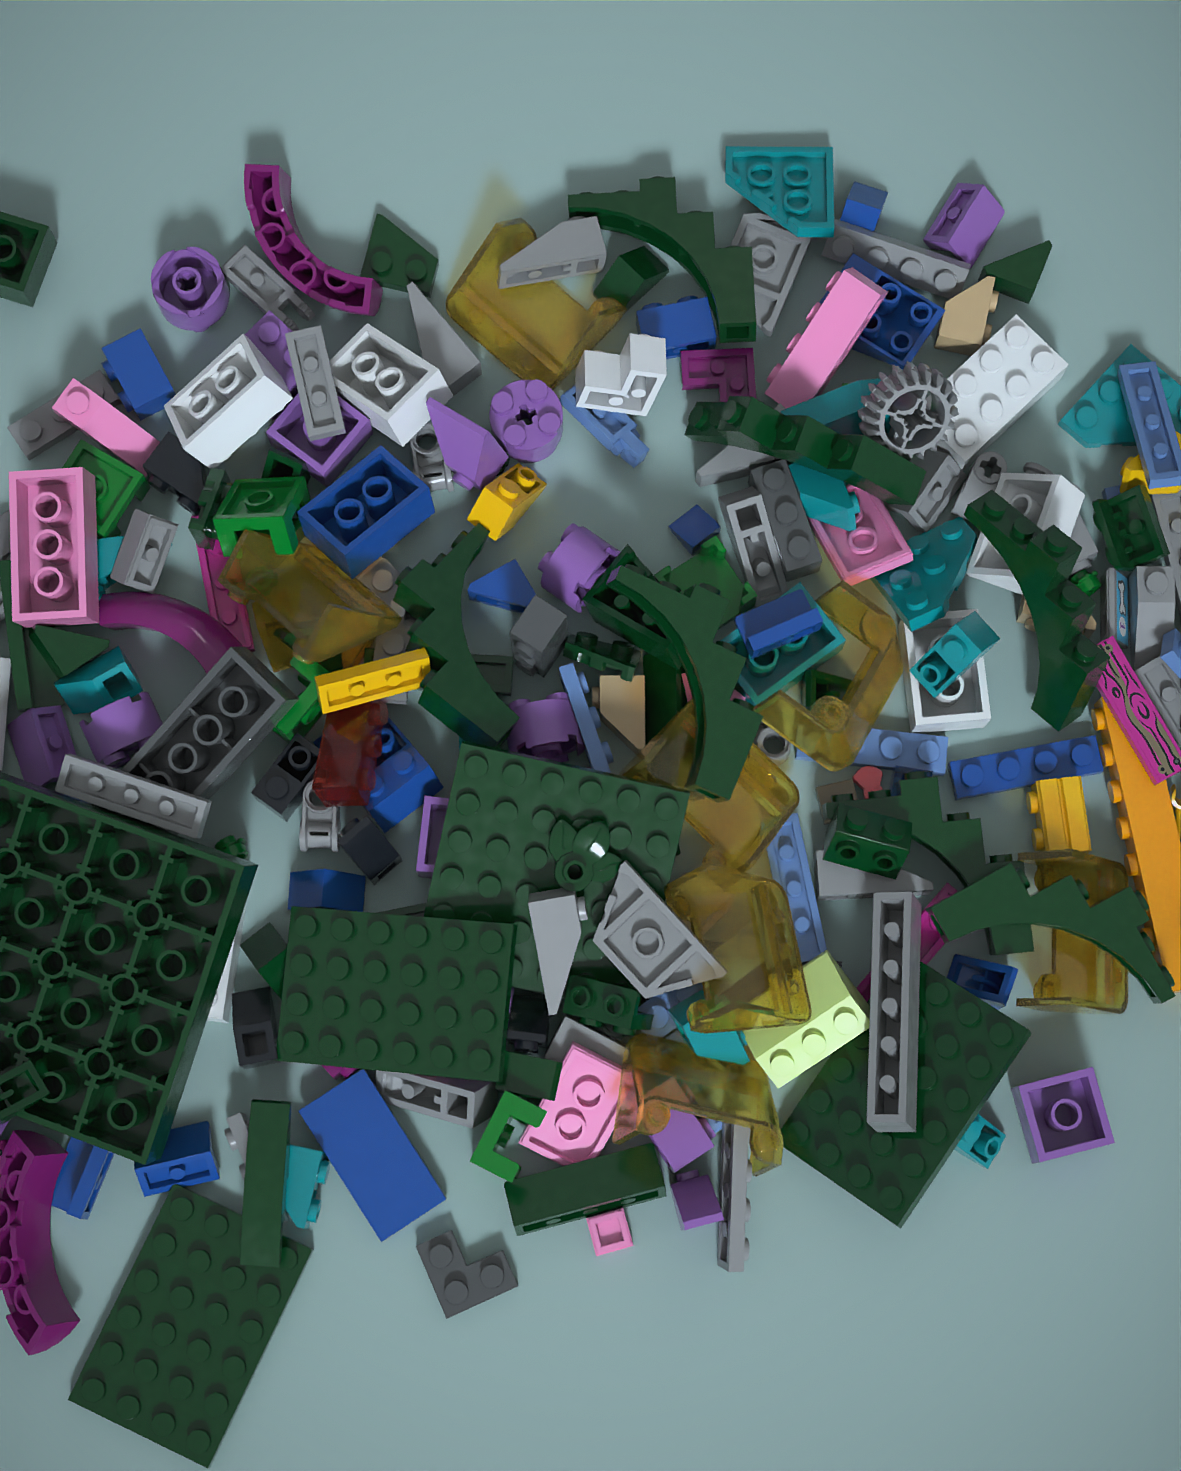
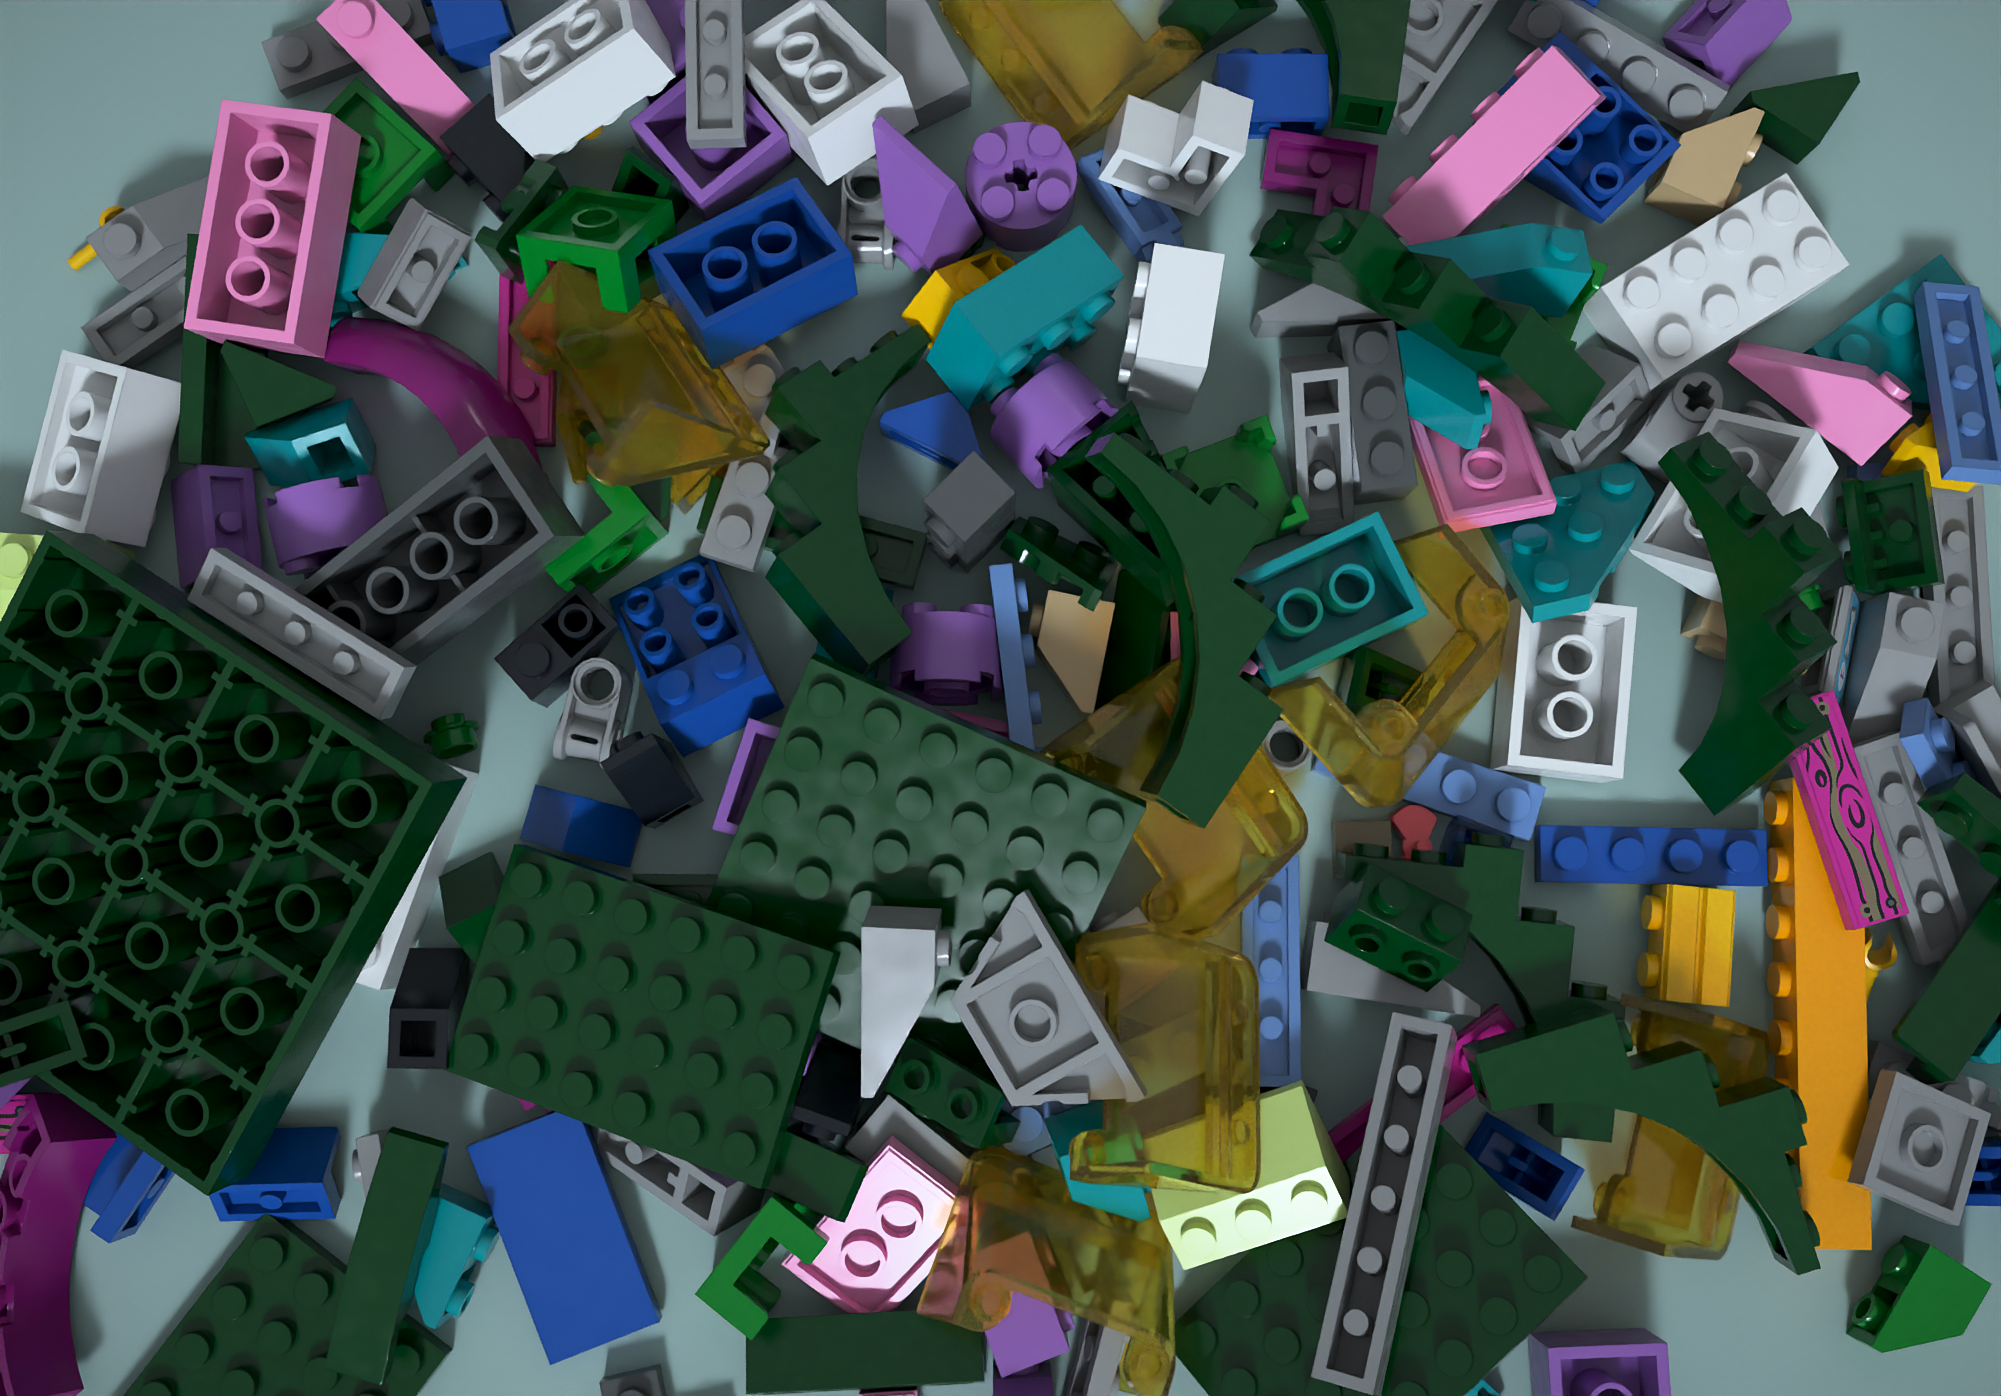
camera: 10 degrees right, 5 degrees up
(349, 754) = (651, 623): clear red brick -> none
(372, 680) = (701, 529): yellow plate -> none
(548, 505) = (1024, 317): none -> teal brick
(584, 849) = (965, 860): dark green plate -> none
(642, 493) = (1170, 327): none -> white brick
(694, 528) = (1235, 398): blue slope -> none
(777, 623) = (1332, 568): blue panel -> none
(903, 399) = (1601, 264): light grey gear -> none
(954, 653) = (1592, 671): teal slope -> none
(1080, 450) = (1835, 397): none -> bright pink slope

